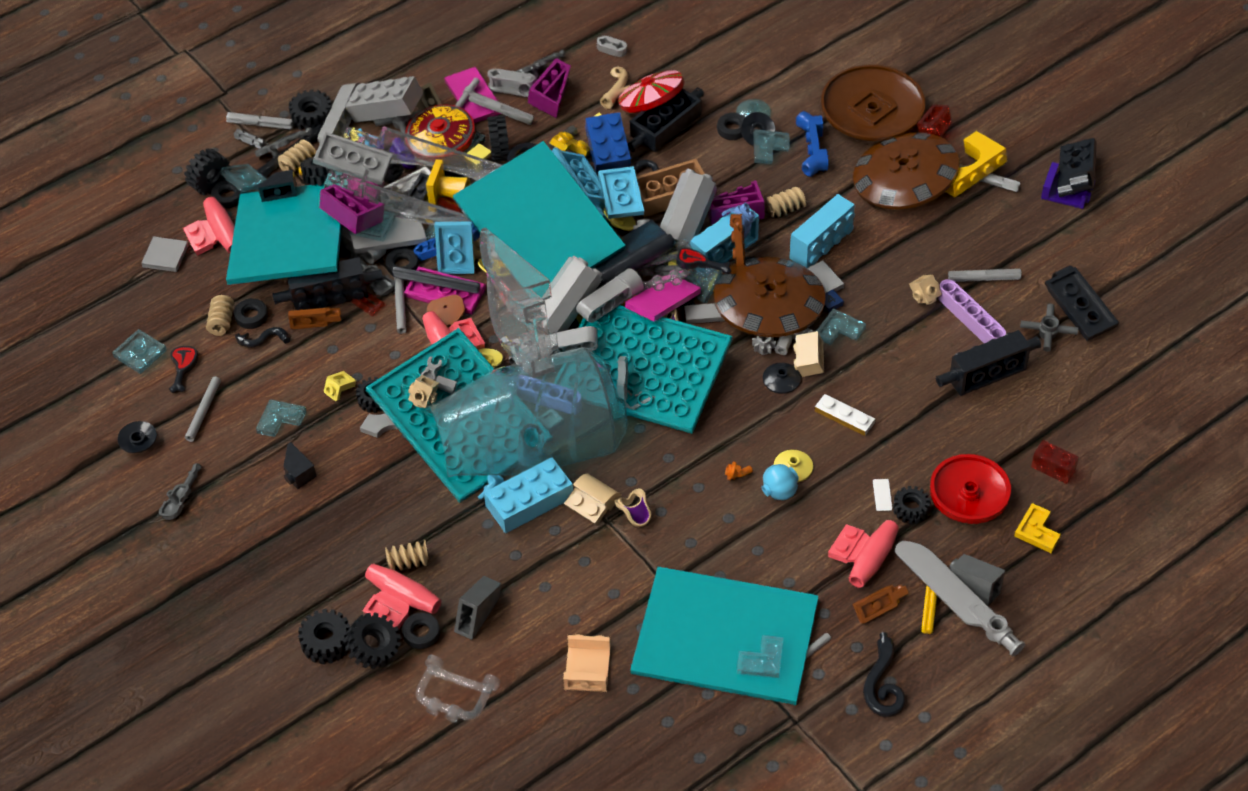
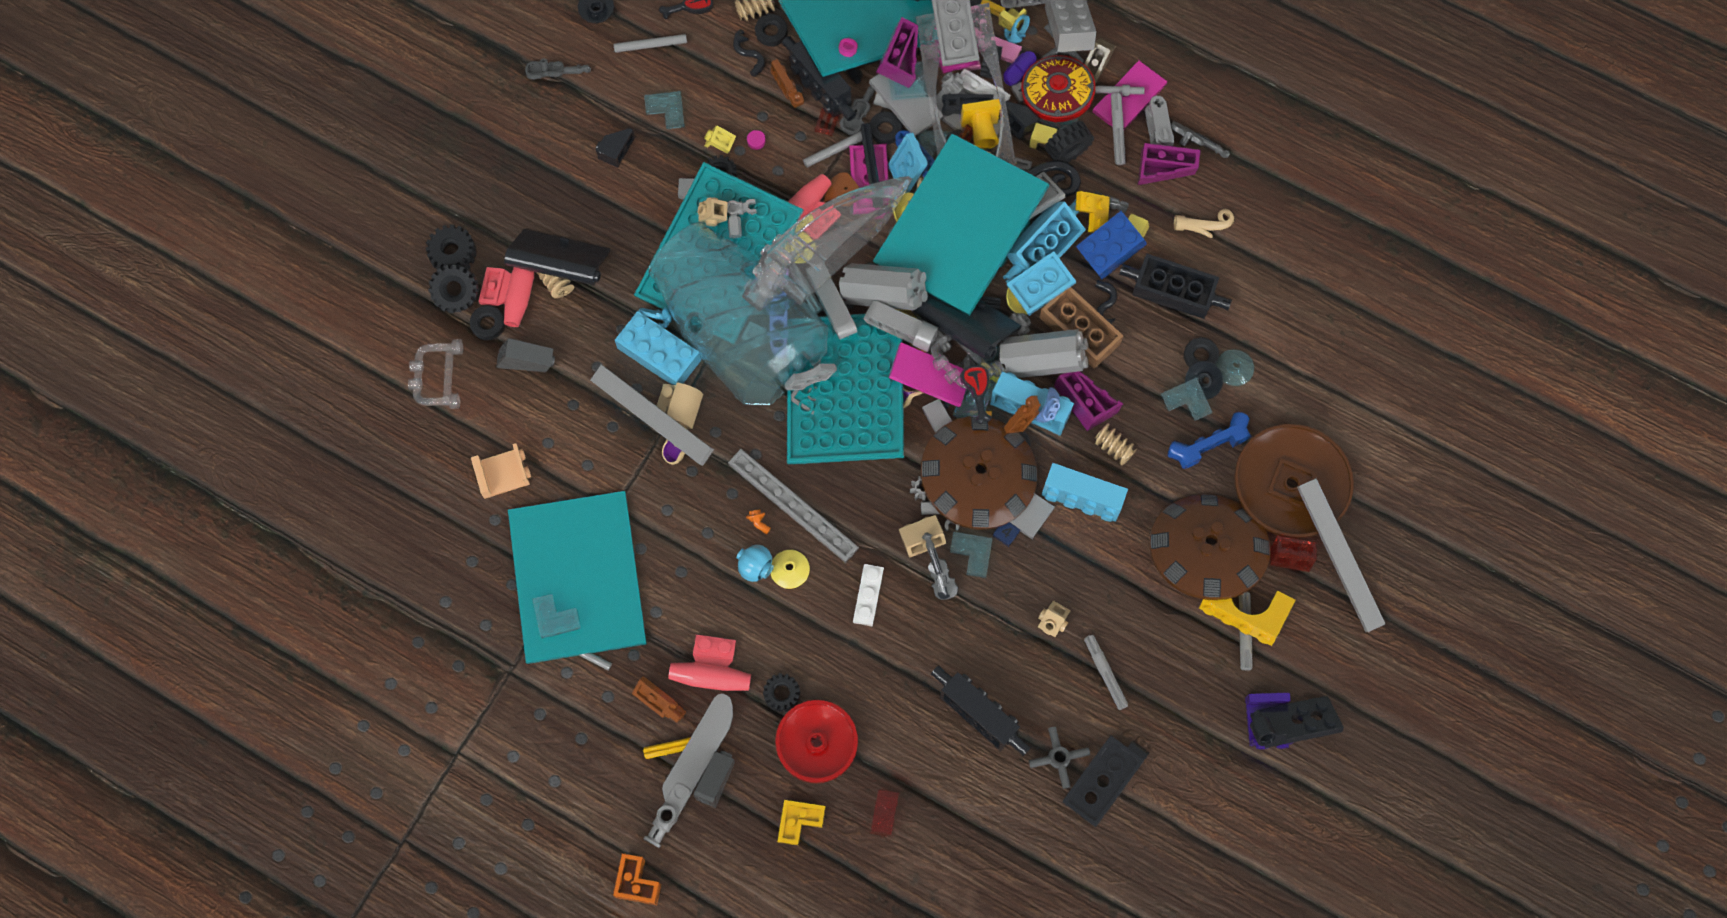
camera: 65 degrees right, 20 degrees up
(320, 244) = (848, 47): none -> dark pink tile
(355, 359) = (756, 140): none -> dark pink tile
(389, 543) = (556, 256): none -> black door
(594, 514) = (652, 415): none -> light grey tile
(611, 46) = (1256, 196): light grey beam -> none
(651, 91) = (1201, 258): dish -> none
(732, 443) = (793, 505): none -> light grey tile
(781, 383) = (885, 528): black dish -> none
(860, 355) = (944, 585): none -> dark grey piece
(882, 494) = (788, 662): white sticker -> none
(885, 655) = (602, 724): black plant -> none
(949, 95) = (1341, 555): none -> light grey tile
(969, 312) = (1047, 666): lavender beam -> none
(1052, 673) = (630, 882): none -> orange brick

